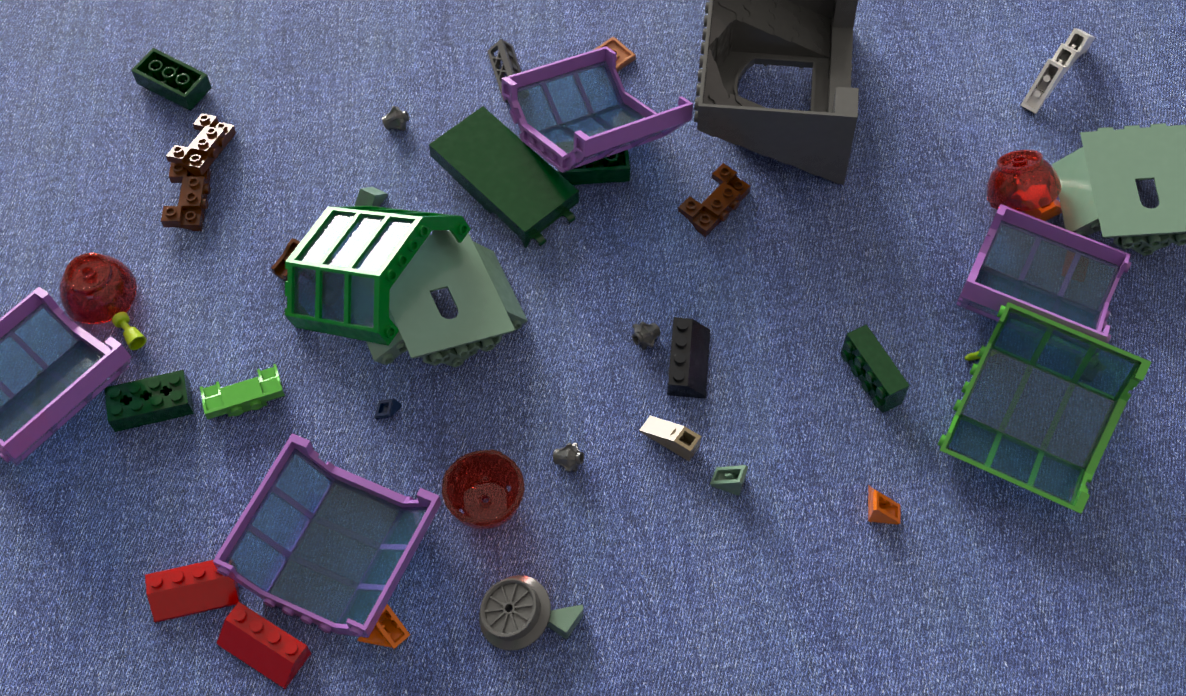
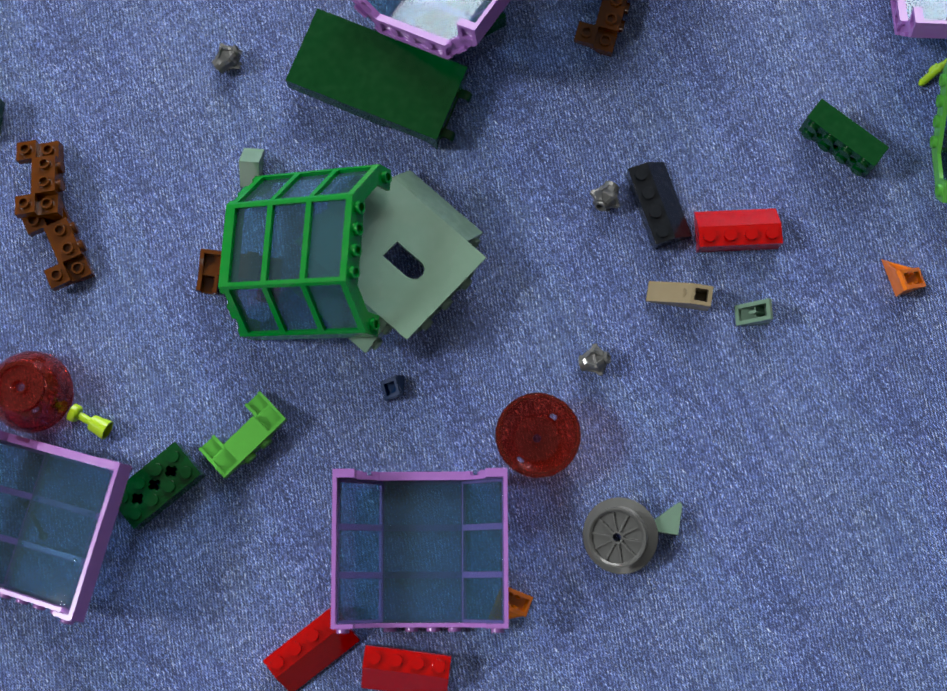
camera: 20 degrees left, 20 degrees up
(746, 408) = (737, 230): none -> red slope

